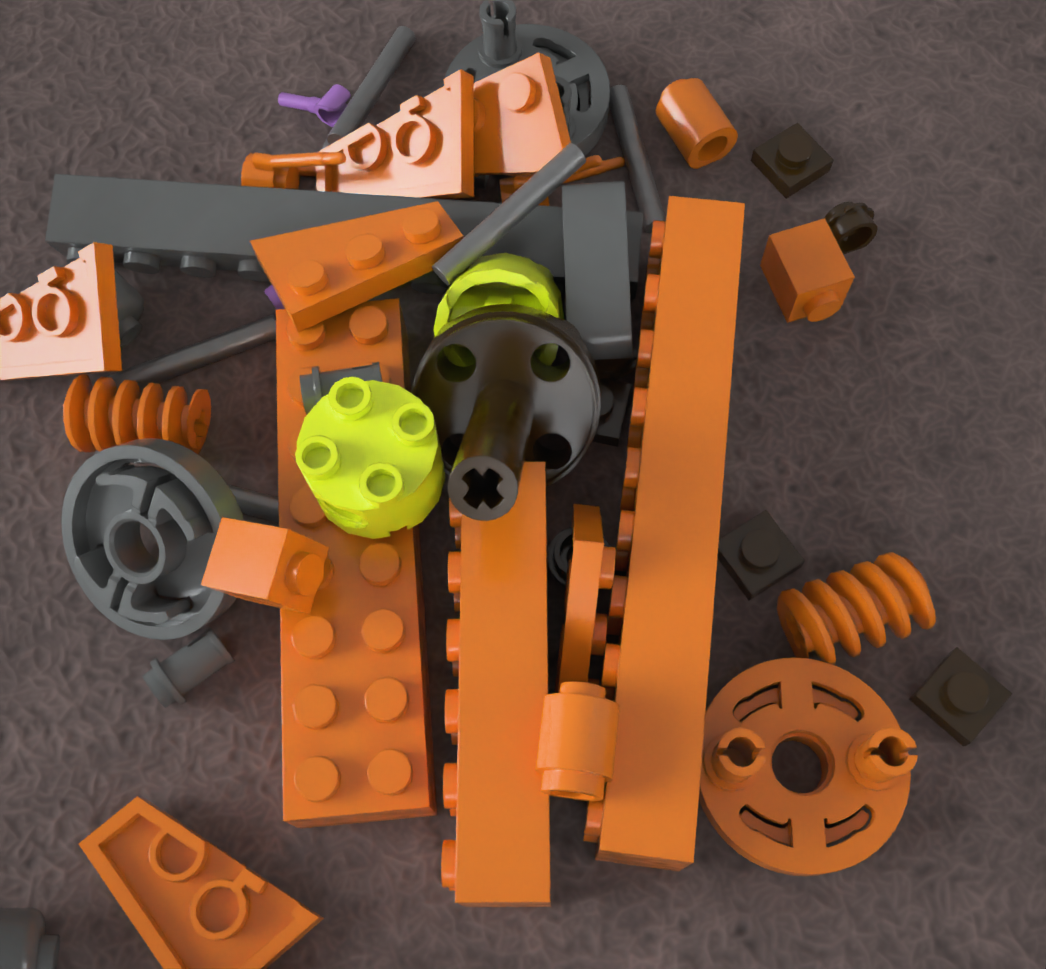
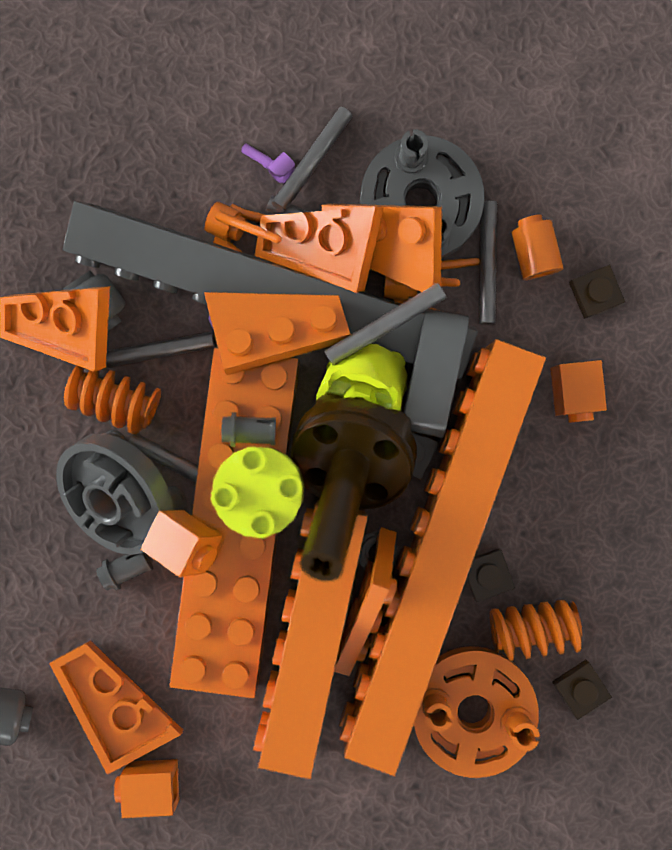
camera: 10 degrees right, 20 degrees up
(577, 742) = (345, 700): orange brick -> none
(854, 222) = (618, 358): dark brown plate -> none

